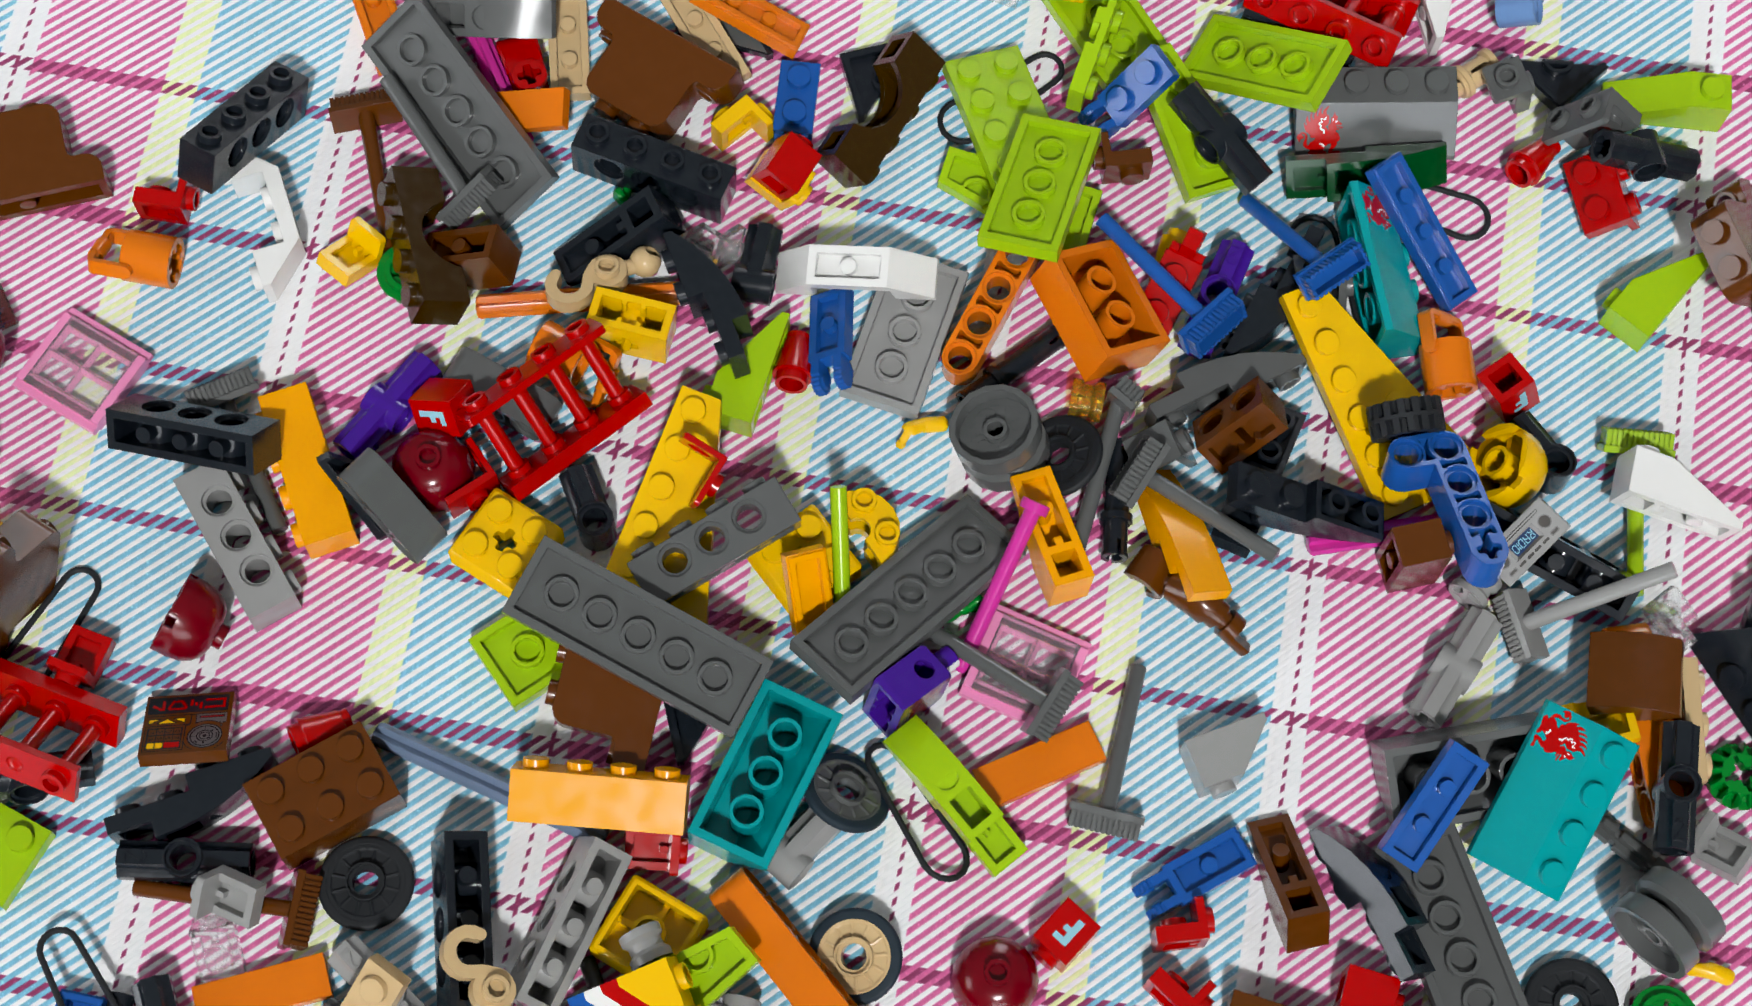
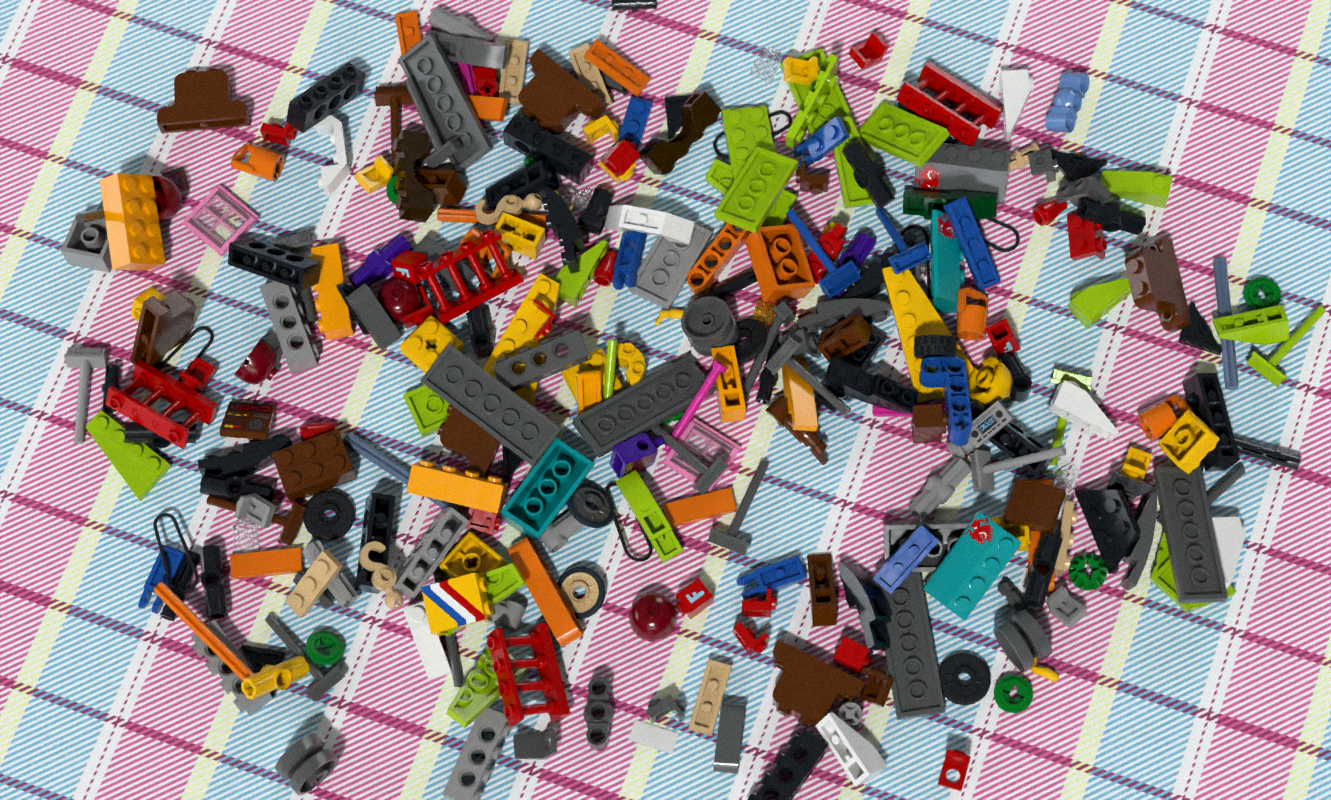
camera: 20 degrees right, 0 degrees up
(645, 945) = (467, 565): light grey wheel -> none
(1222, 756) = (800, 516): light grey slope -> none

